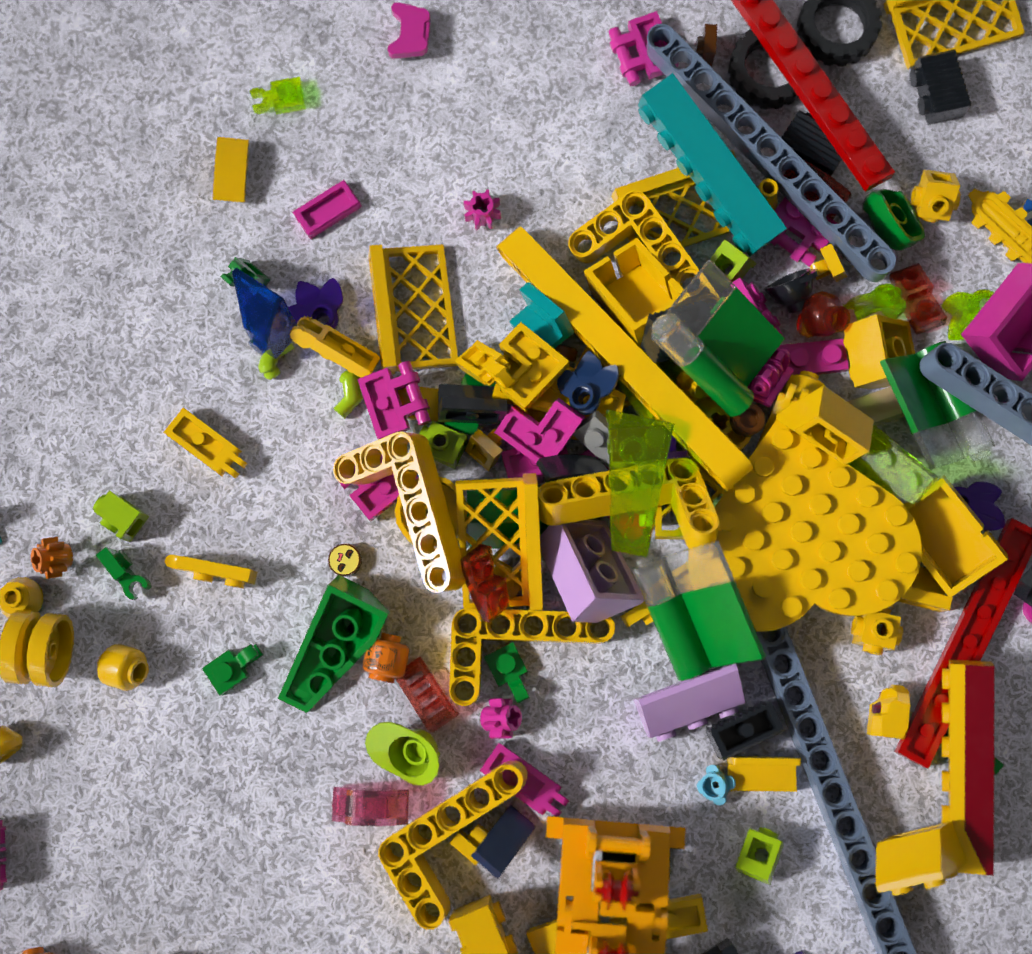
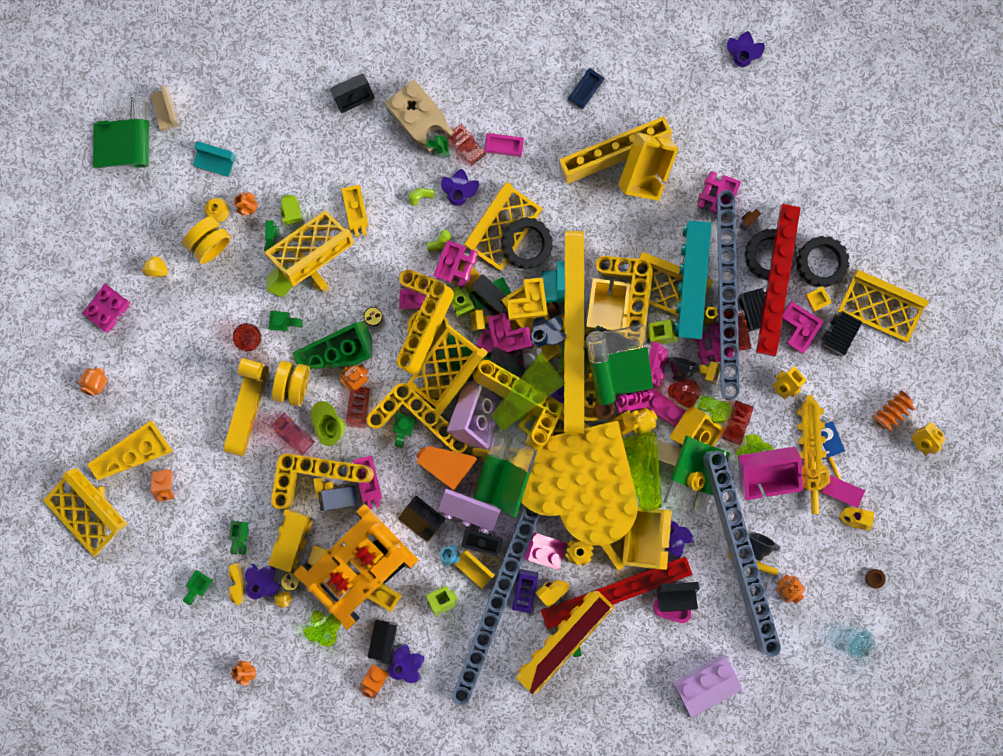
camera: 35 degrees right, 5 degrees up
(78, 304) = (352, 93): none -> black panel
(122, 667) = (236, 280): yellow head -> none
(182, 617) = (278, 283): none -> lime panel
(195, 263) = (421, 120): none -> tan brick
(199, 730) = (247, 337): none -> clear red hair
(204, 542) = (318, 255): none -> yellow fence
(230, 169) = (475, 88): yellow slope -> none
(263, 315) = (430, 174): clear blue slope -> none
(276, 823) = (246, 407): none -> yellow beam
(280, 248) = (466, 144): none -> clear red slope
(284, 96) = (530, 72): clear neon green plate -> none
(309, 741) = (290, 383): none -> yellow wheel
(334, 346) = (451, 215): yellow hinge -> none
(370, 60) = (586, 88): none -> dark blue tile
(413, 33) = (618, 93): dark pink piece -> none
(471, 98) = (609, 151): none -> yellow brick
(474, 273) = (540, 228): none -> black tyre
(485, 201) = (569, 207): dark pink gear -> none
(485, 365) = (510, 283): yellow hinge -> none
(485, 588) = (423, 381): clear red slope -> none
(501, 718) = (381, 445): dark pink gear -> none
(522, 69) = (645, 160): none -> yellow piece
(610, 668) = (446, 465): none -> orange slope
(637, 768) = (421, 518): none -> black panel
(830, 424) = (633, 443): yellow slope -> none
(834, 668) = (545, 551): none -> plate
(839, 719) = (526, 574): none -> dark purple slope
(876, 69) = (818, 299): none -> yellow tile
(892, 115) = (805, 324): none -> dark pink plate
(893, 218) = (760, 376): green piece -> none
(917, 858) = (506, 659): yellow slope -> none
(941, 409) = (696, 481): none -> yellow plate

